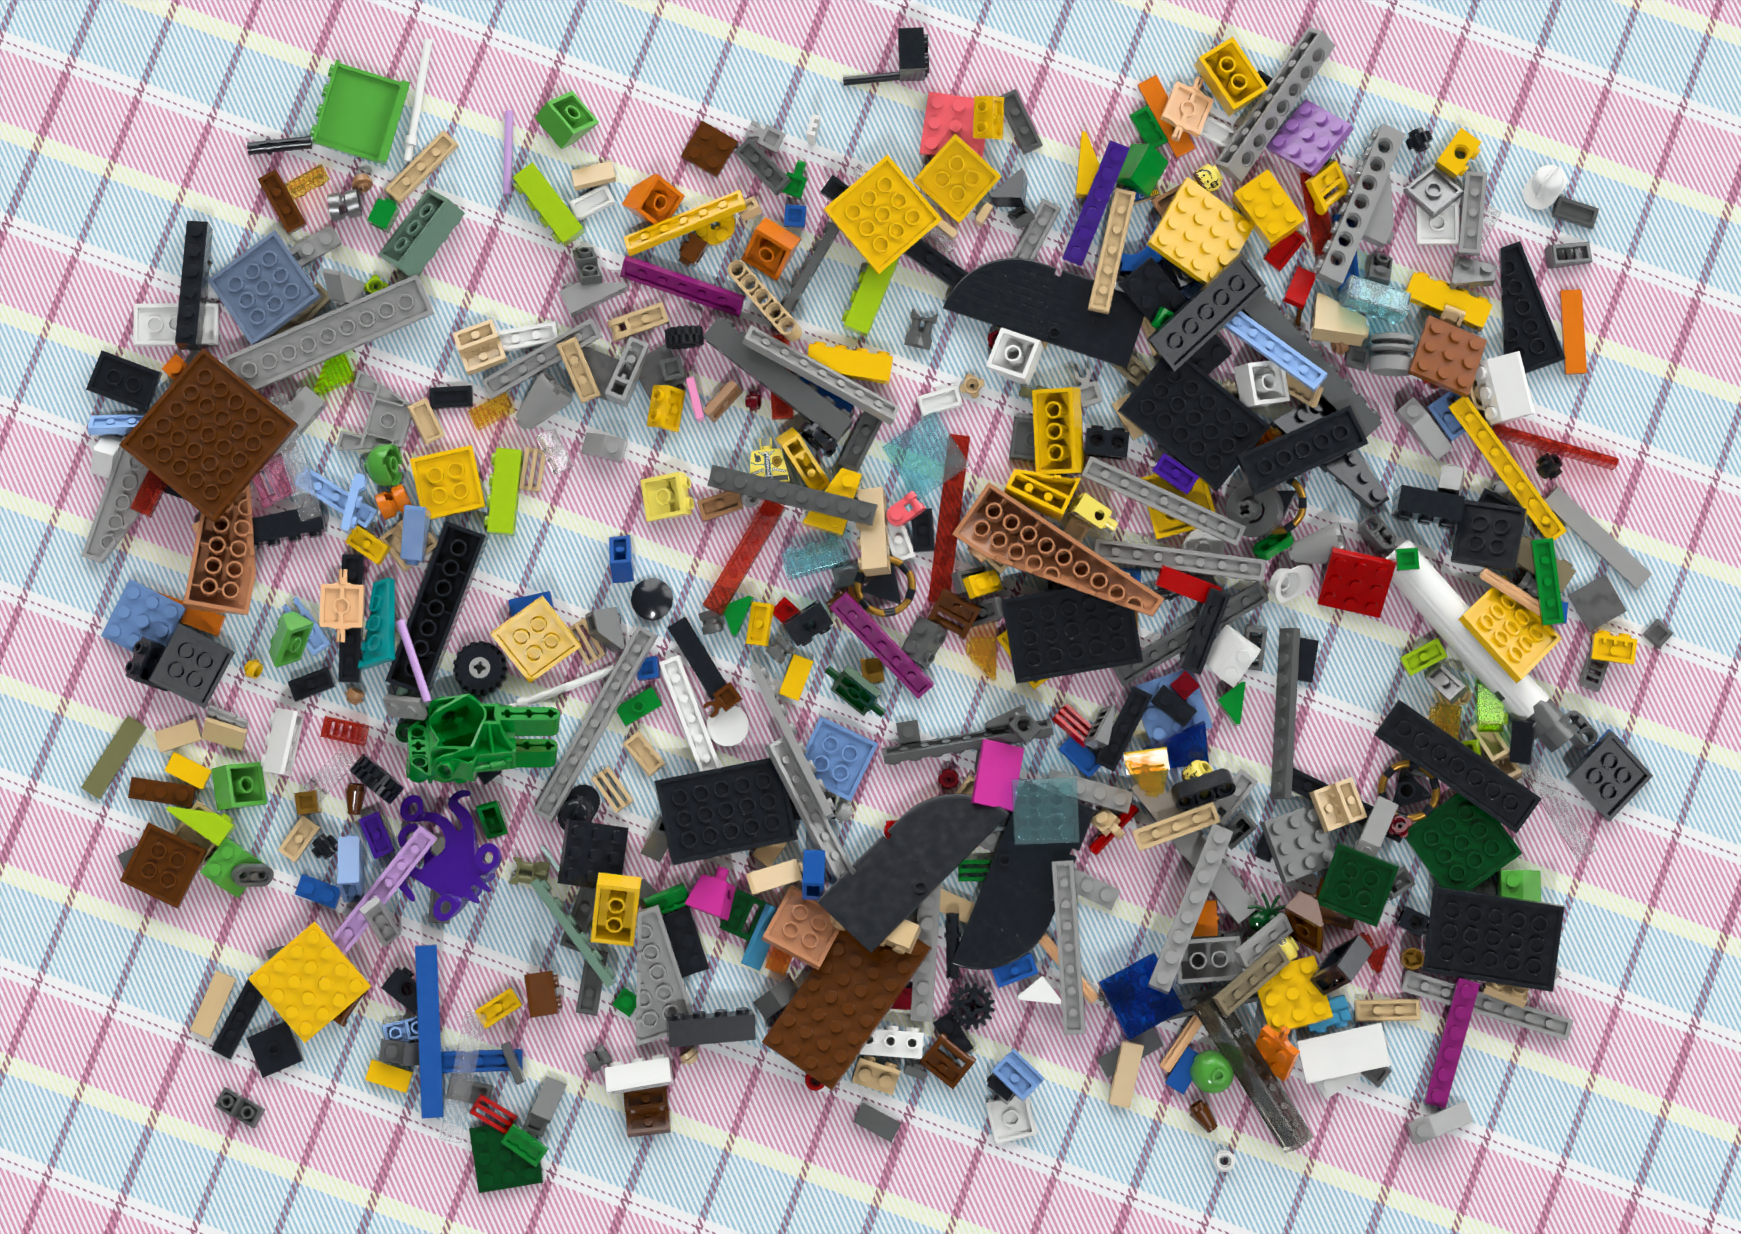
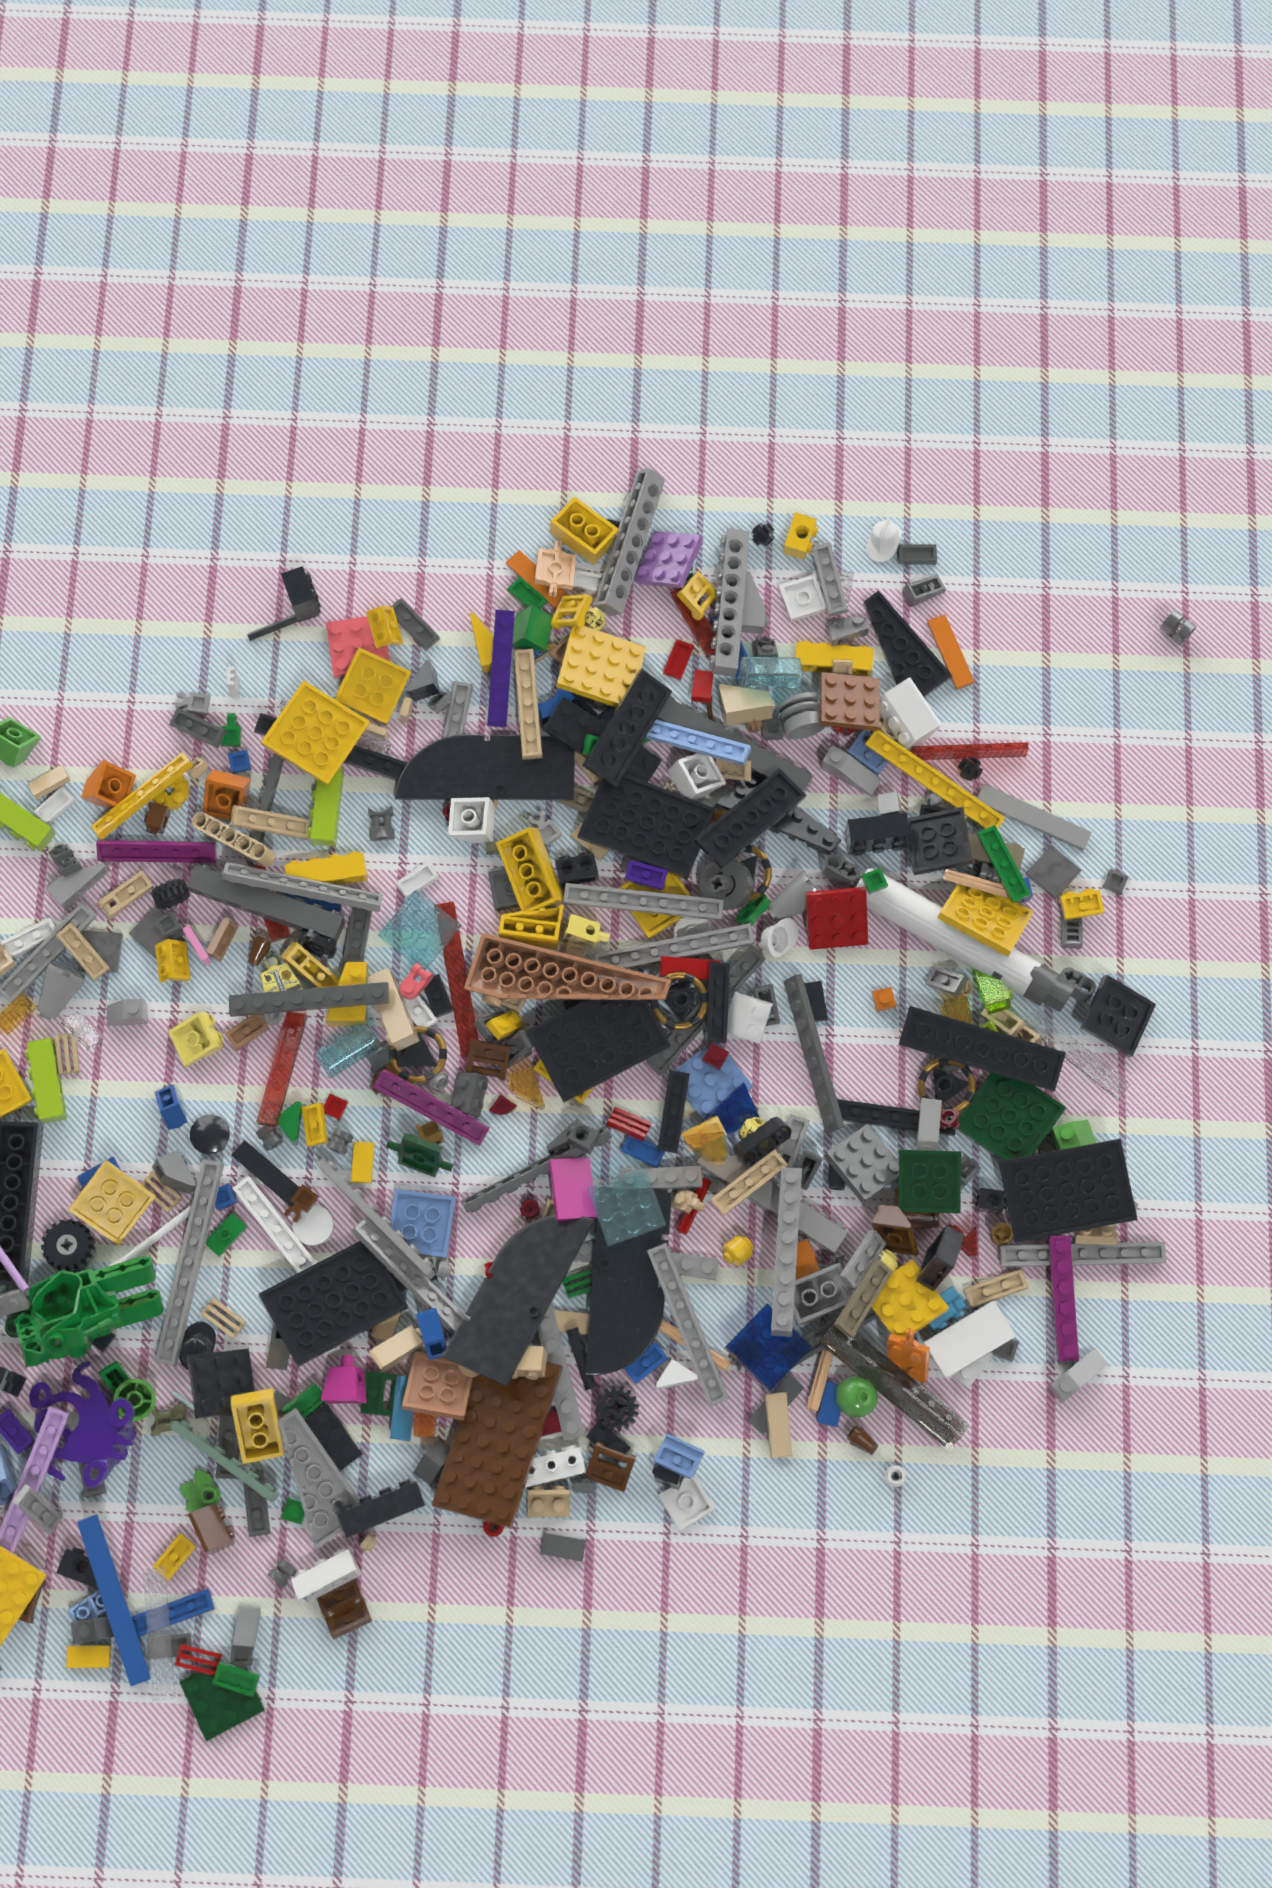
camera: 20 degrees left, 10 degrees down
(508, 840) = (139, 1394): none -> bright green cylinder
(513, 1063) = (202, 1603): dark grey tile -> none
(538, 951) = (197, 1491): none -> bright green plate
(627, 372) = (127, 941): light grey slope -> none
(644, 753) = (243, 1275): tan plate -> none
(709, 149) = (146, 729): reddish brown plate -> none
(753, 401) = (250, 931): dark red plate -> none
(756, 424) = (259, 949): none -> reddish brown cone
(795, 623) = (350, 1119): black brick -> none
(807, 294) = (270, 822): none -> tan tile
(898, 620) = (439, 1081): none -> light grey plate
(908, 732) = (480, 1178): dark grey plate -> none
(953, 665) = (502, 1106): none -> dark red tile
(978, 384) = (438, 853): tan plate -> none
(1101, 729) = (653, 1120): dark grey slope -> none
(1142, 889) = (738, 1250): none -> yellow head
(1168, 617) = (680, 1001): none -> black piece
(1173, 706) = (711, 1078): black plate -> none
(1192, 158) = (570, 606): none -> yellow plate
(1232, 703) = (763, 1059): green slope -> none
(1259, 918) = (852, 1242): dark green animal -> none
(1268, 209) = (653, 629): yellow brick -> none
(1338, 804) = (888, 1118): tan slope -> none
(1376, 680) = (883, 999): none -> orange plate
(1423, 657) = (918, 965): lime plate -> none
(1433, 191) = (790, 572): flat silver tile -> none
(1522, 741) = (1031, 1008): black tile -> none

